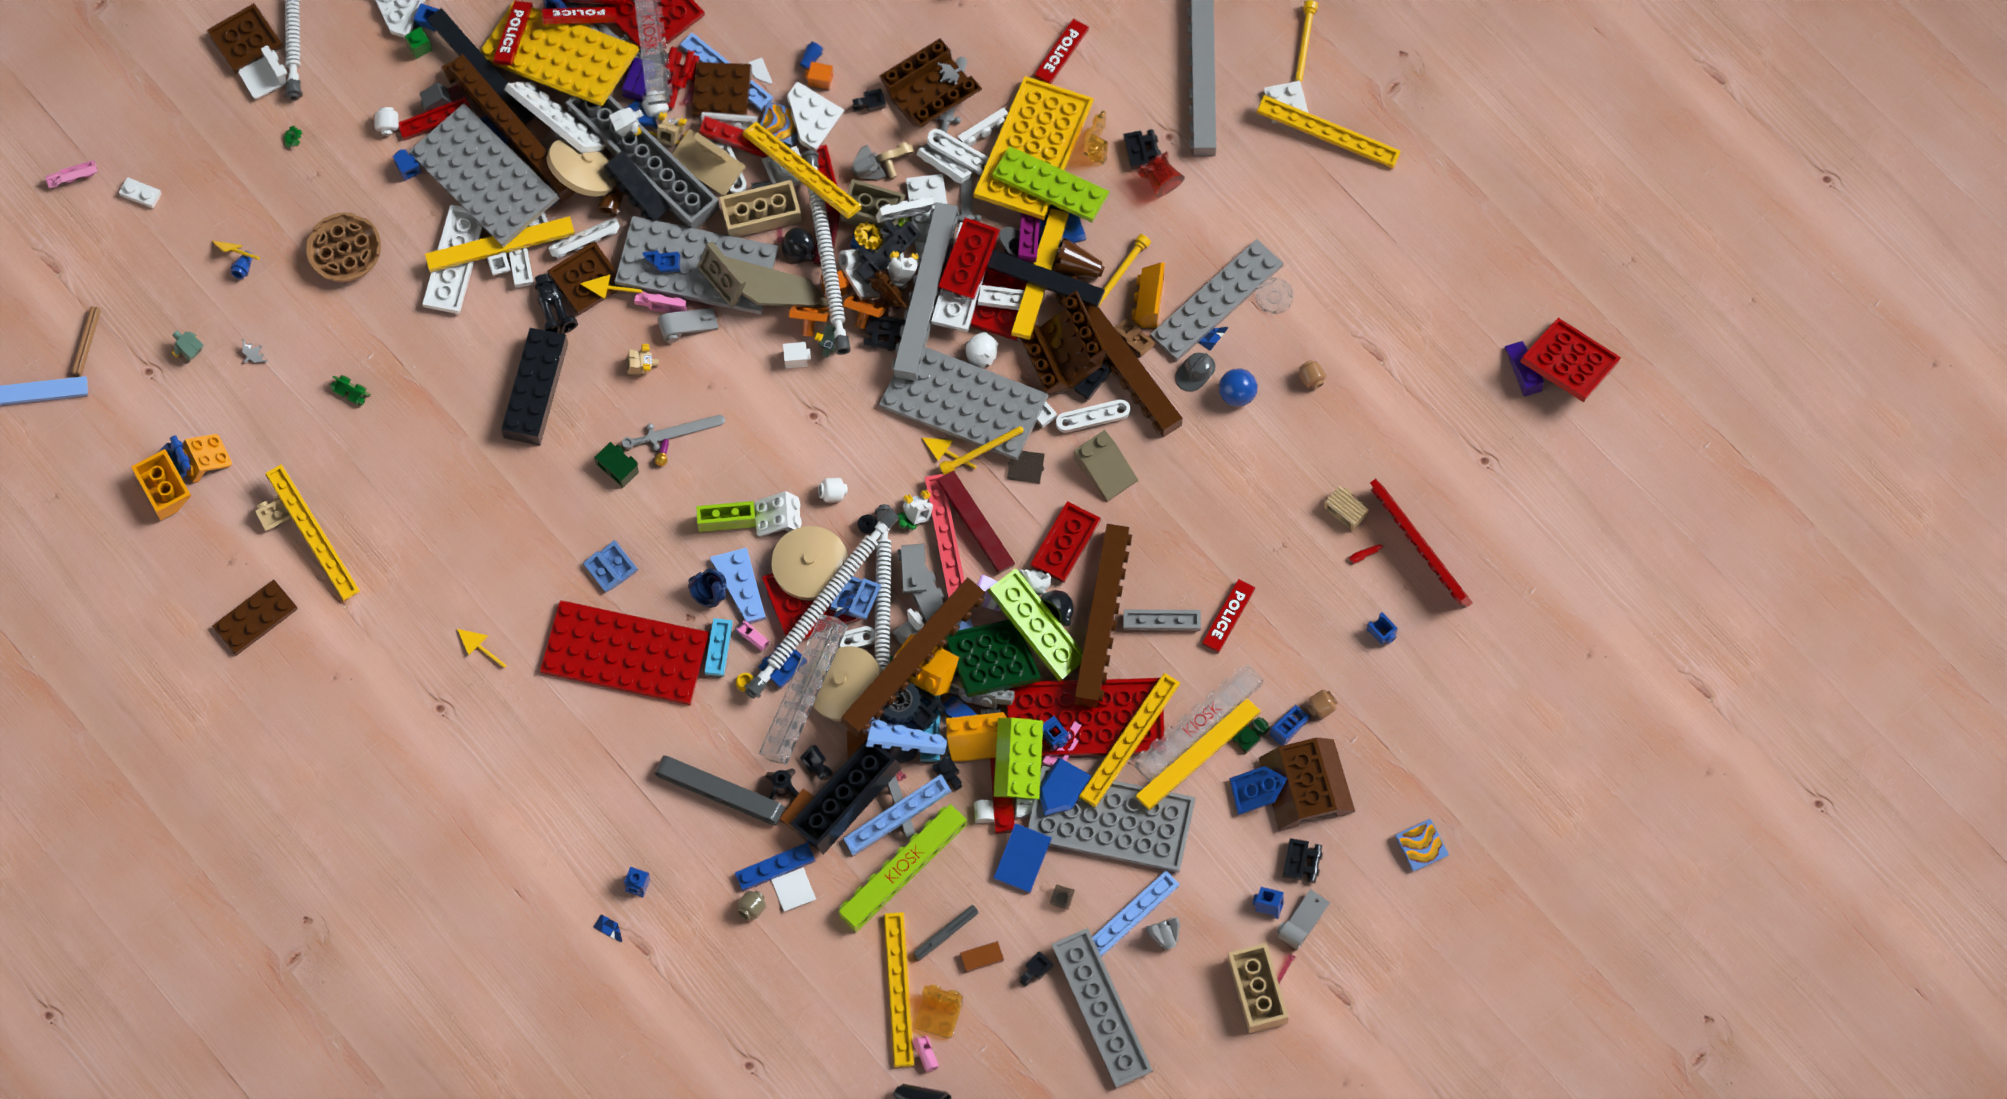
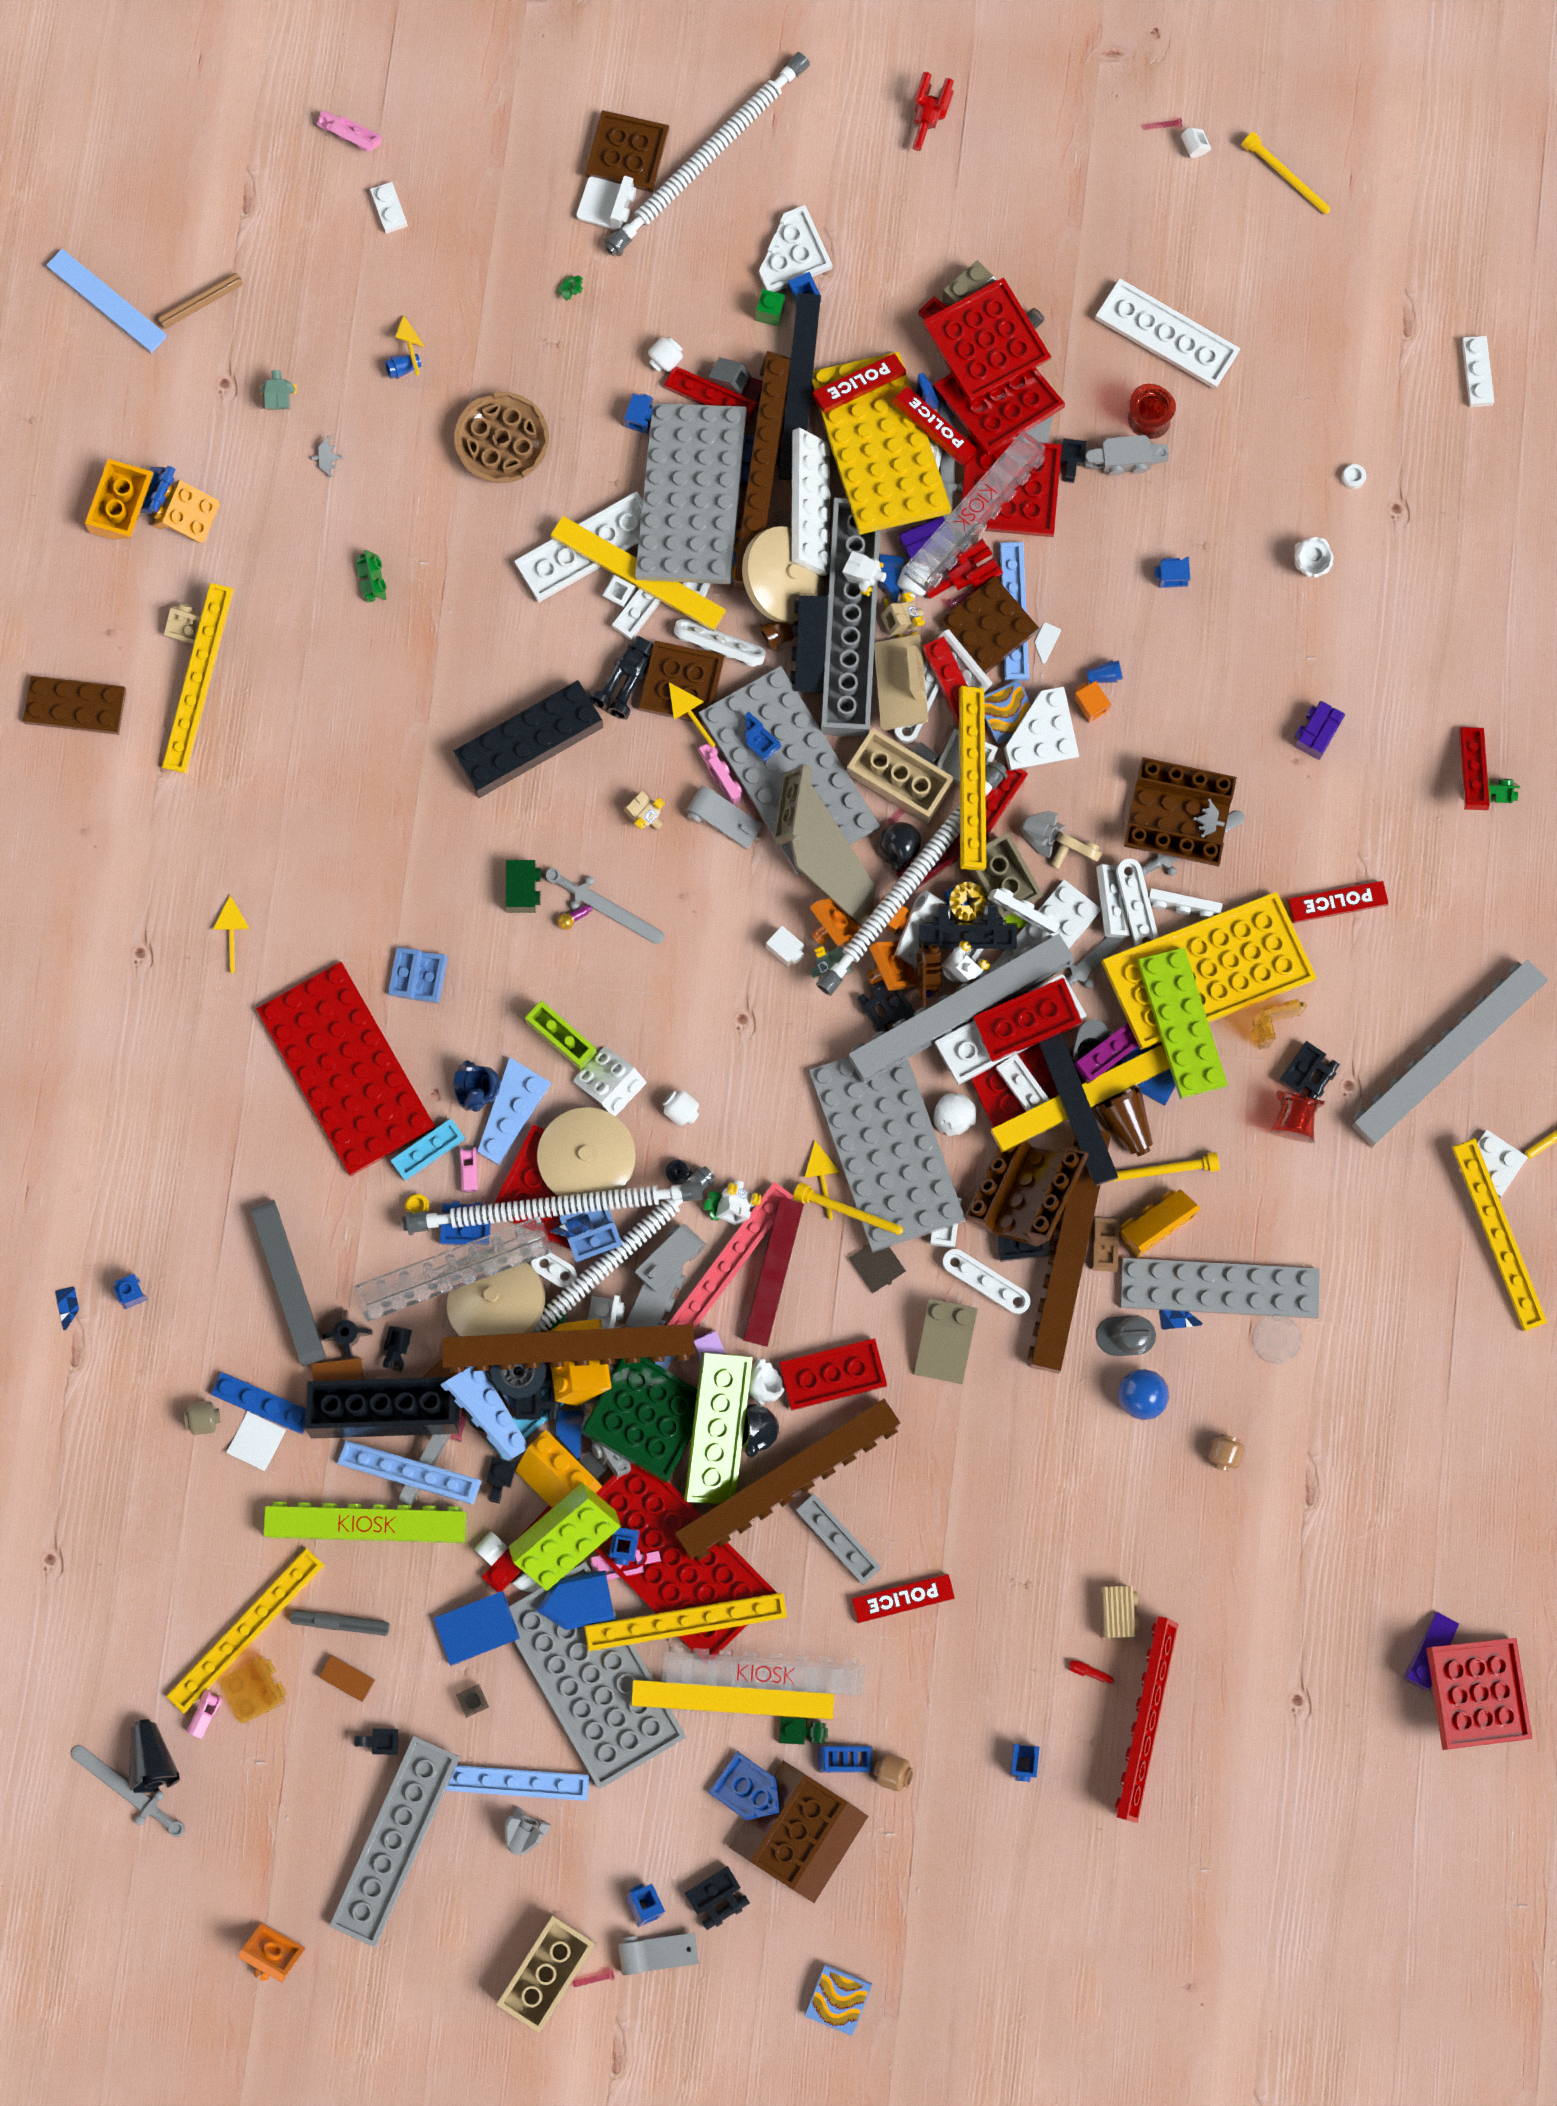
camera: 45 degrees right, 10 degrees up
(871, 99) = (1114, 774): black plate -> none

